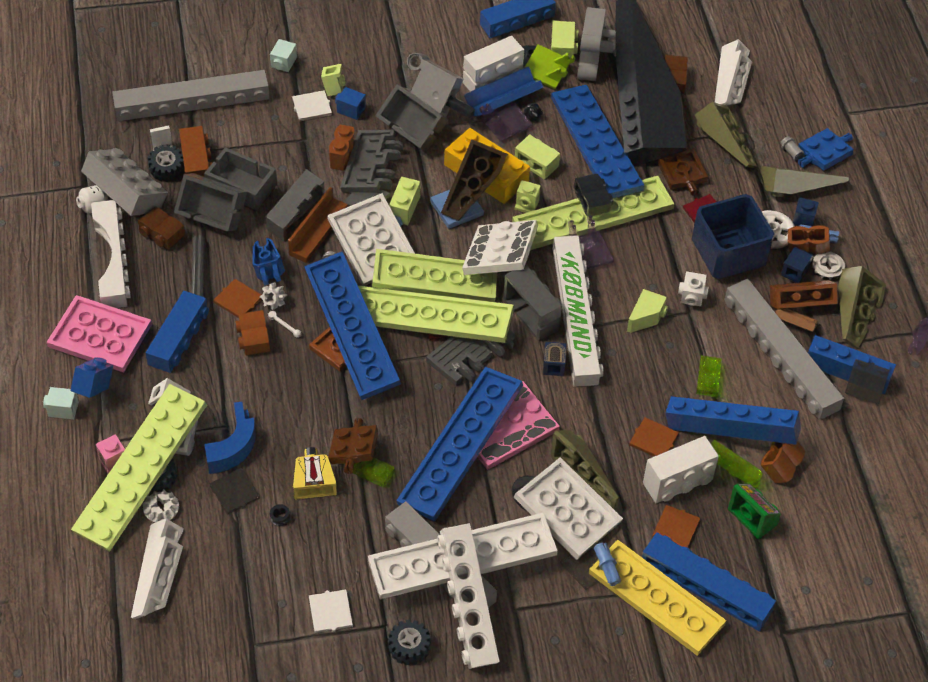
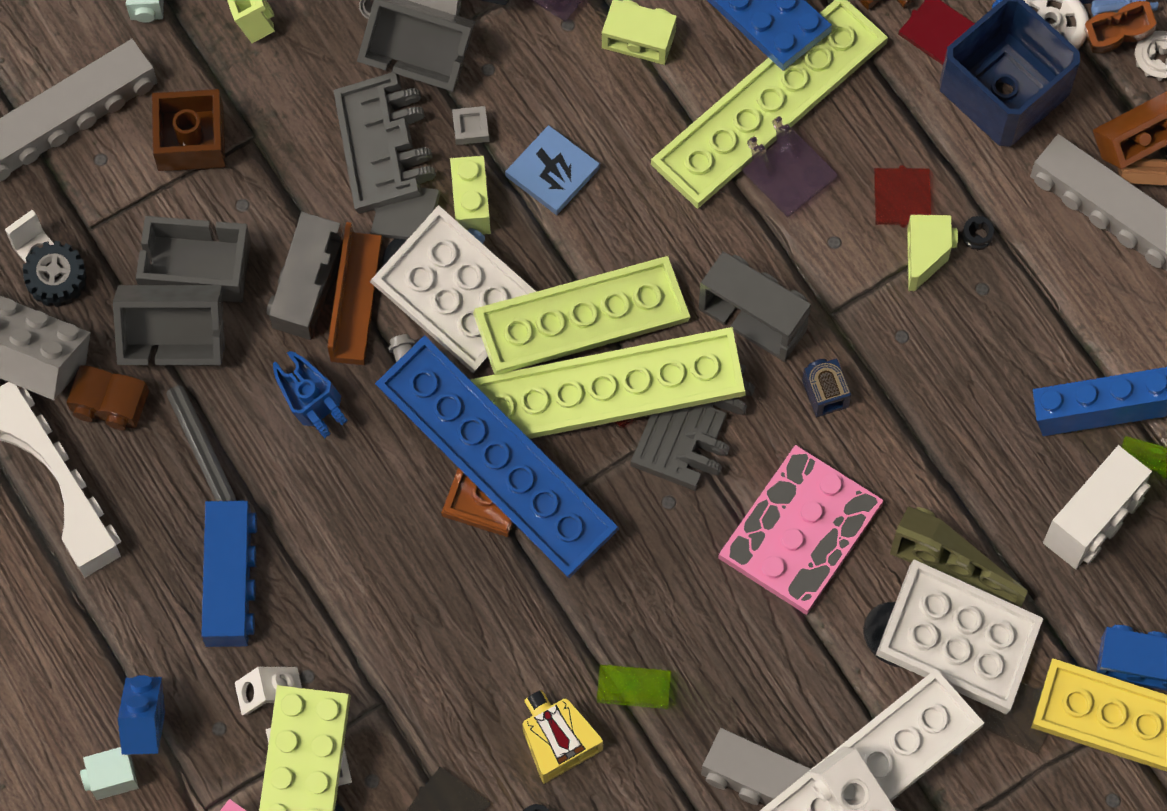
camera: 20 degrees left, 15 degrees up
(99, 331) = (105, 625): bright pink plate -> none
(194, 150) = (95, 240): dark orange brick -> none
(236, 448) = (413, 750): blue arch -> none
(237, 298) = (289, 473): dark orange piece -> none
(254, 333) = (347, 527): dark orange brick -> none
(271, 120) = (188, 130): none -> reddish brown brick
(272, 315) = (357, 482): white hinge -> none
(273, 296) = (347, 450): white gear -> none
(311, 105) = (234, 69): white piece -> none
(341, 147) = (324, 135): dark orange brick -> none
(350, 103) = (297, 44): blue brick -> none
(353, 445) = (595, 662): reddish brown plate -> none
(422, 170) = (470, 125): none -> light grey plate
(460, 443) = (754, 594): blue plate -> none
(474, 176) = (572, 113): dark brown wedge -> none
(500, 247) = (664, 229): white plate -> none
(508, 180) = (568, 79): yellow brick -> none
(527, 197) = (658, 114): yellowish green brick -> none
(576, 311) = (819, 278): white brick -> none
(593, 194) = (761, 74): black brick -> none
(607, 563) = (1059, 708): medium blue axle -> none
(645, 279) = (901, 194): none -> clear red piece
(653, 438) = (1028, 462): dark orange piece -> none
(677, 319) = (978, 242): none -> black bush
(677, 525) = (1122, 597): dark orange piece -> none
(693, 289) = (982, 182): white brick -> none
(708, 376) = (1064, 322): clear neon green plate -> none
(796, 265) = (1116, 75): dark blue brick -> none

